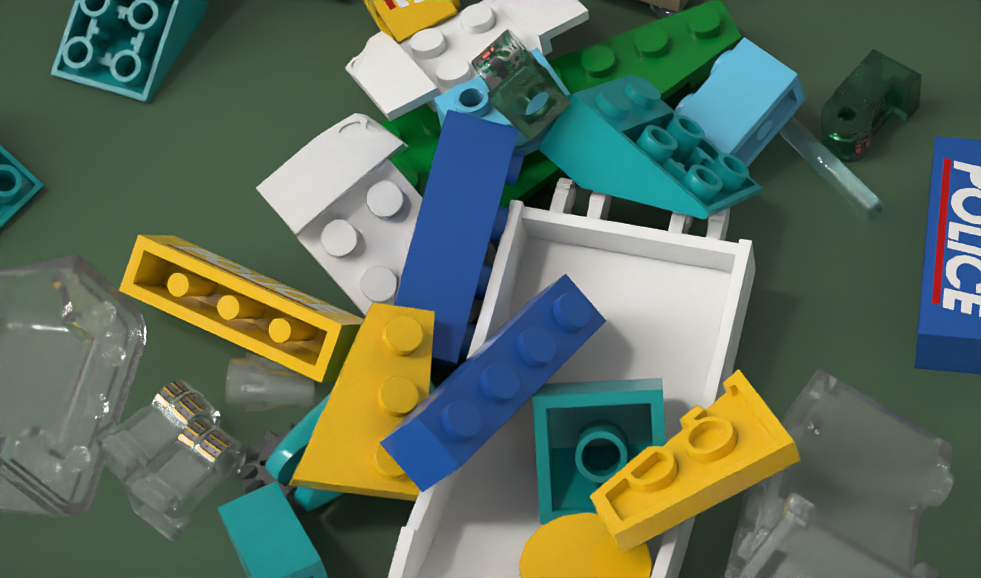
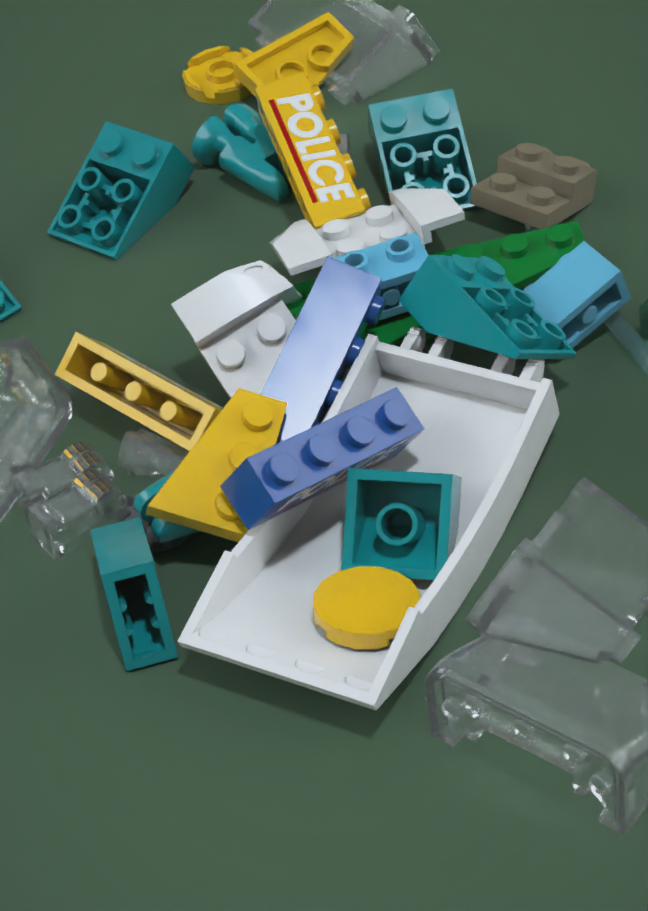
camera: 10 degrees right, 10 degrees down
(514, 80) = (386, 243): clear green leg -> none
(702, 465) = (466, 537): yellow wing -> none

